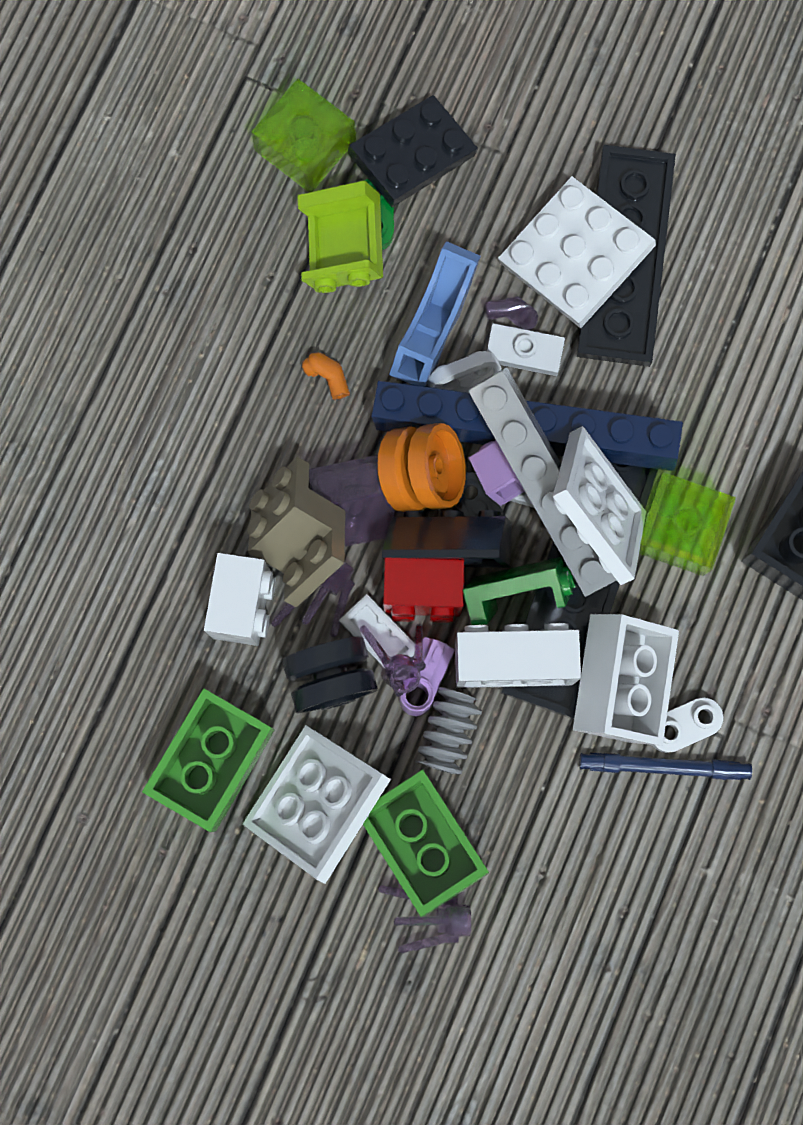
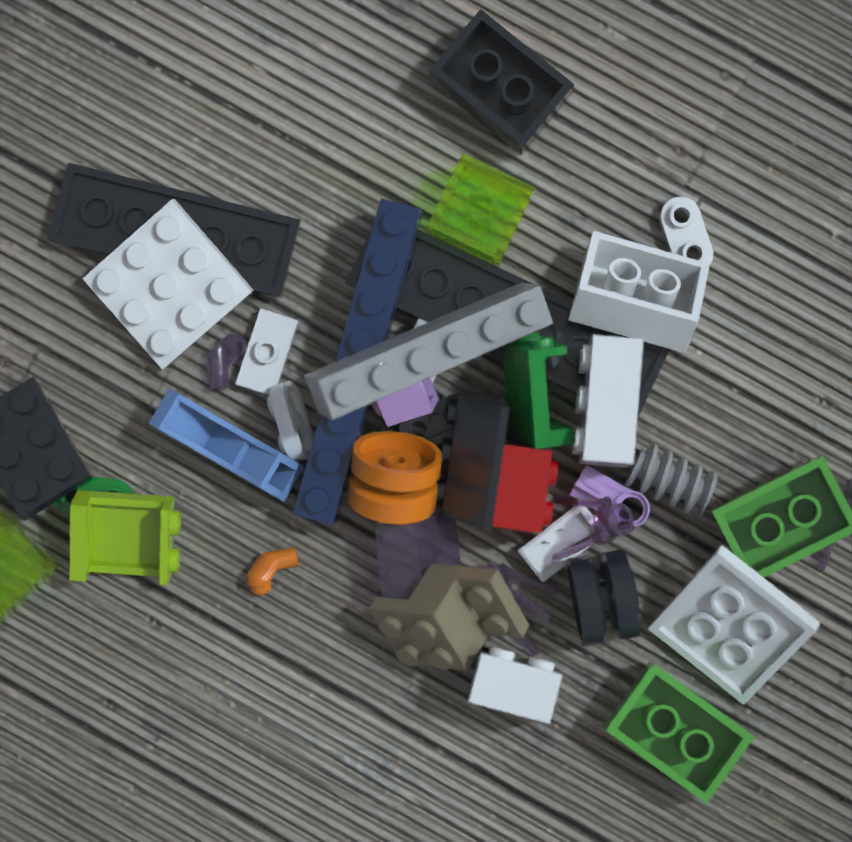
camera: 80 degrees left, 5 degrees up
(600, 506) = (464, 296): white plate -> none
(714, 769) = (734, 213): dark blue piece -> none

